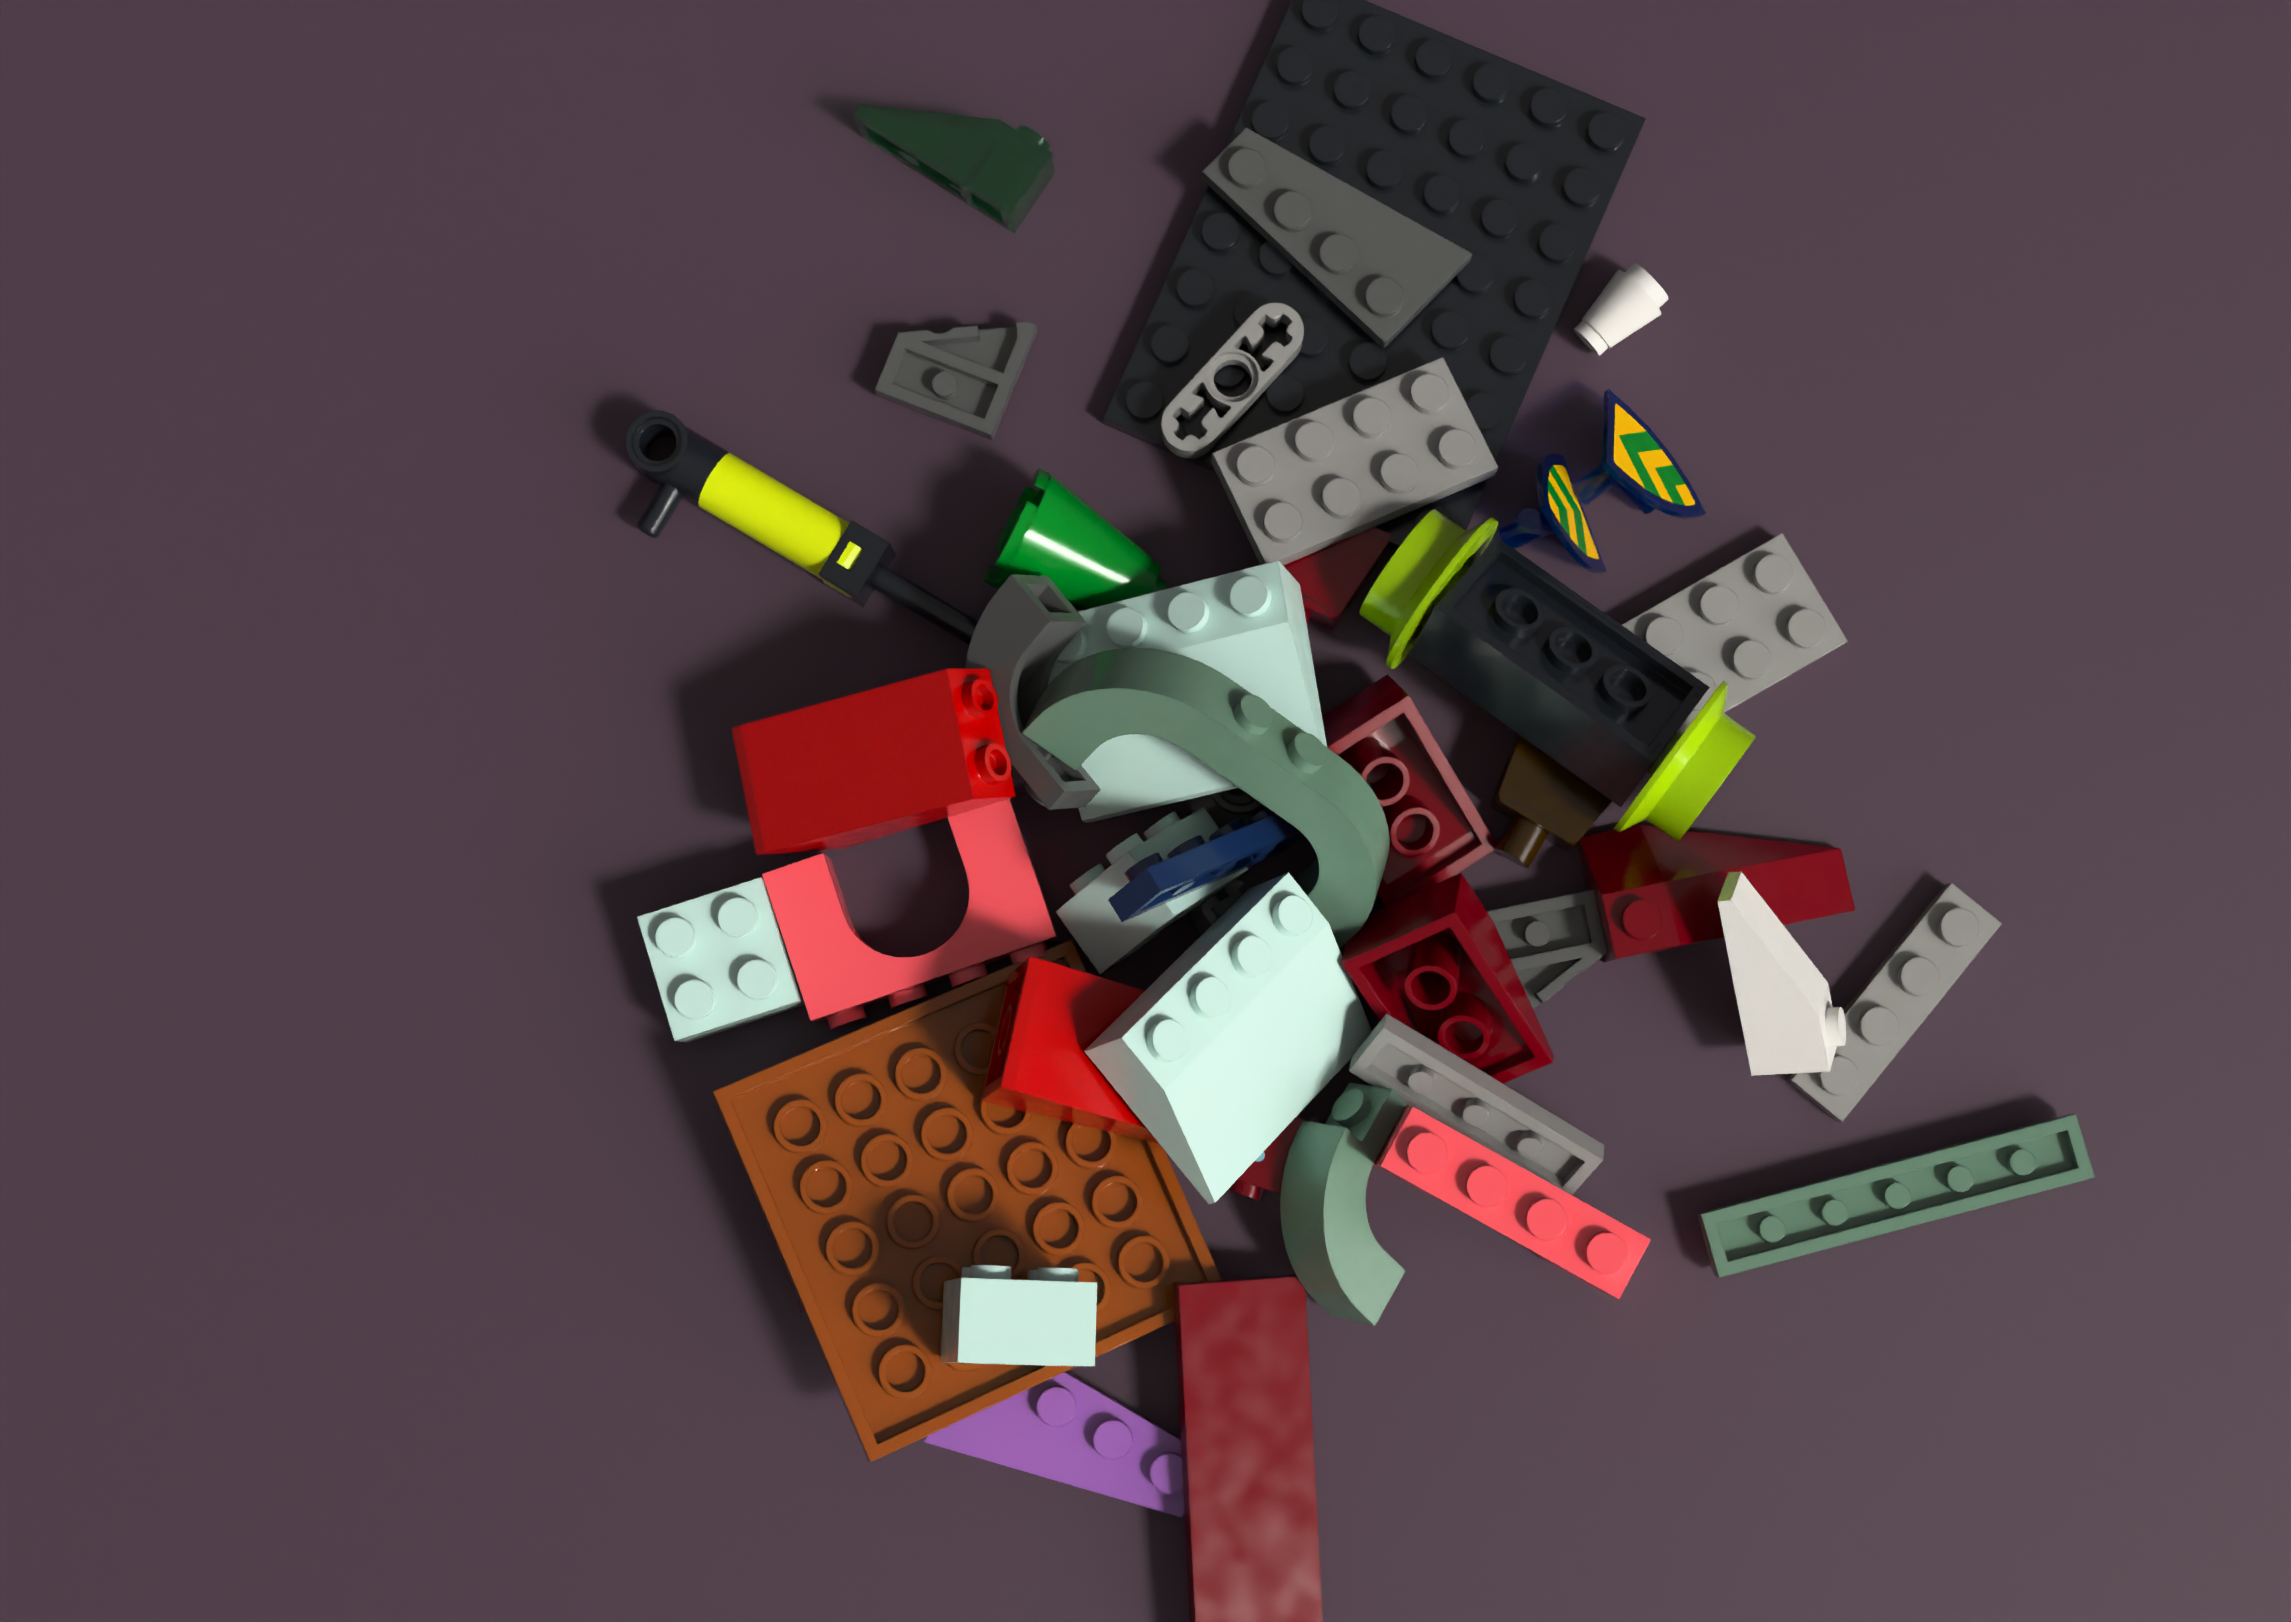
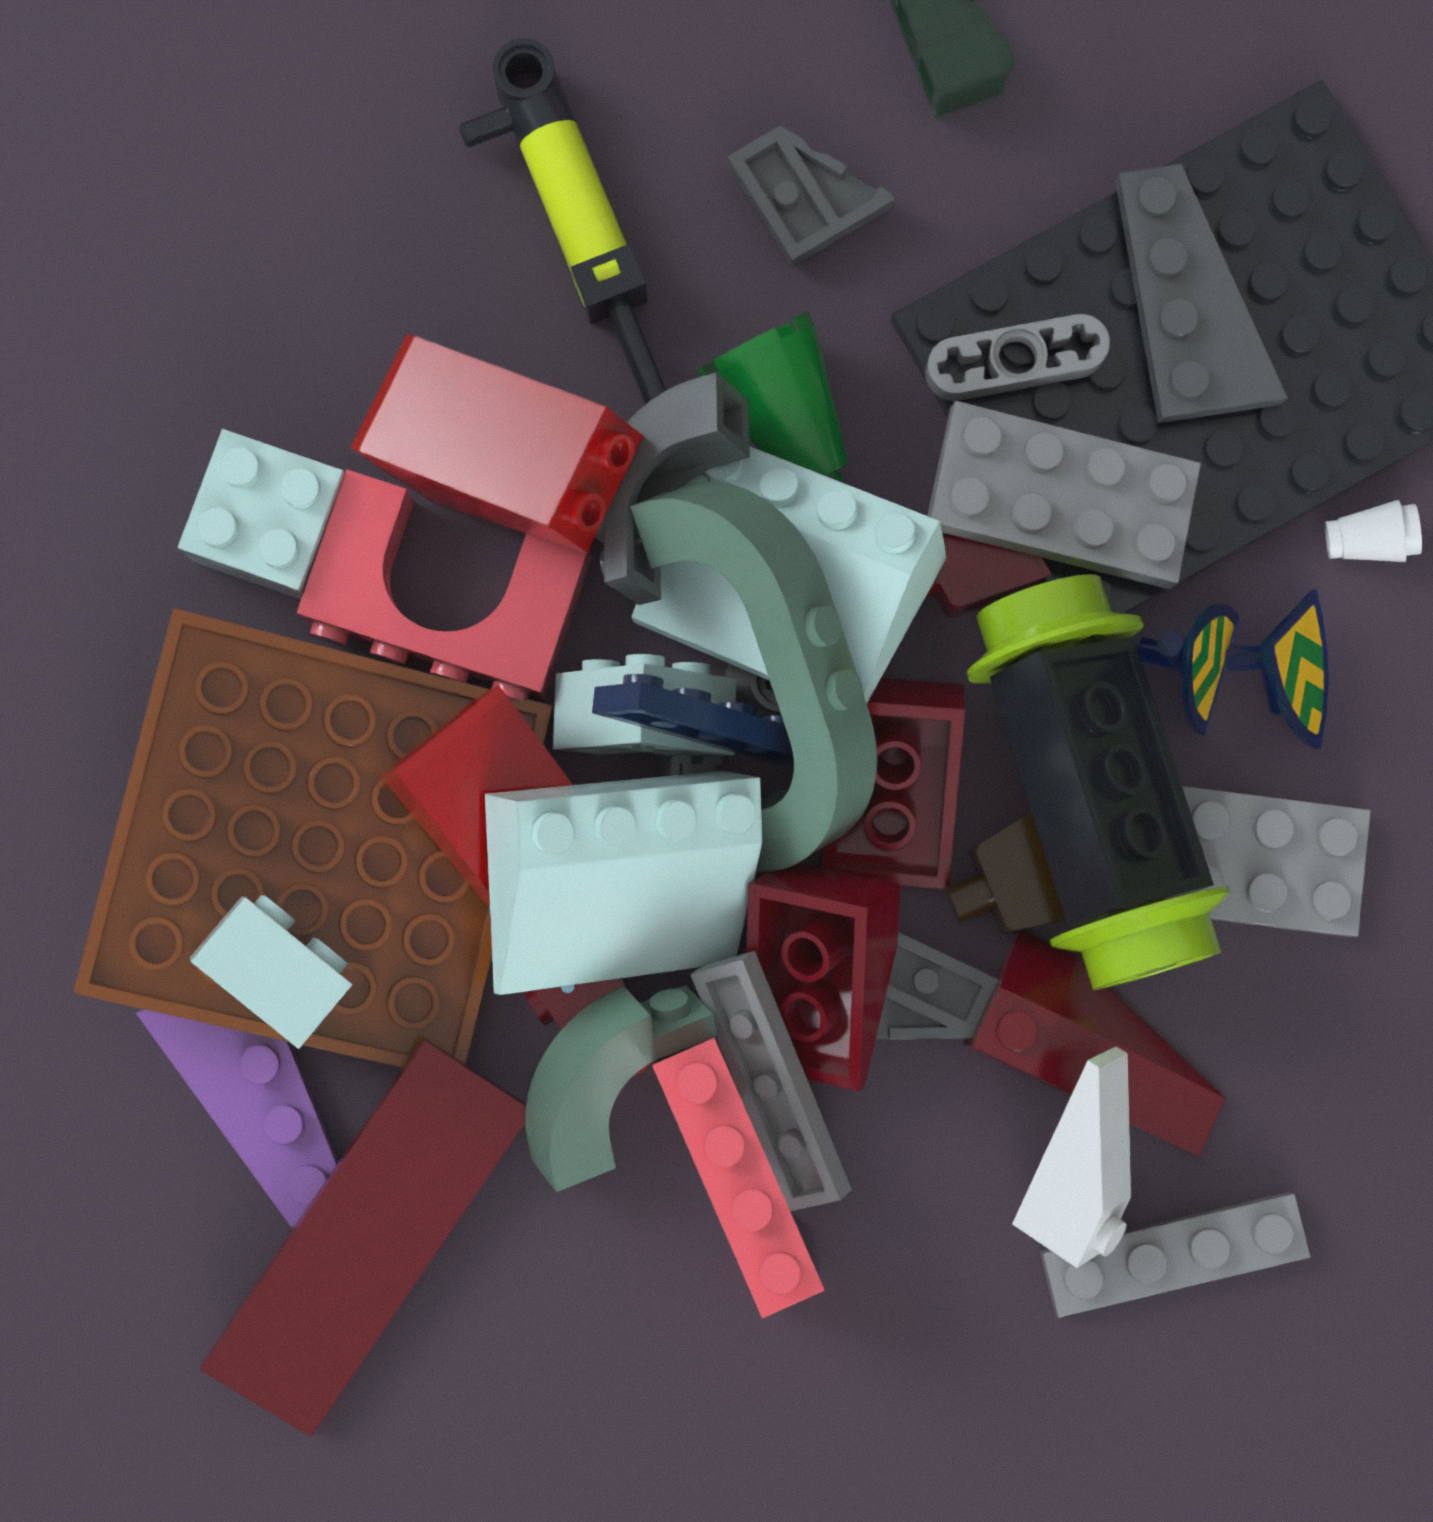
camera: 30 degrees right, 0 degrees up
(1895, 1195) = (1057, 1409): sand green plate -> none

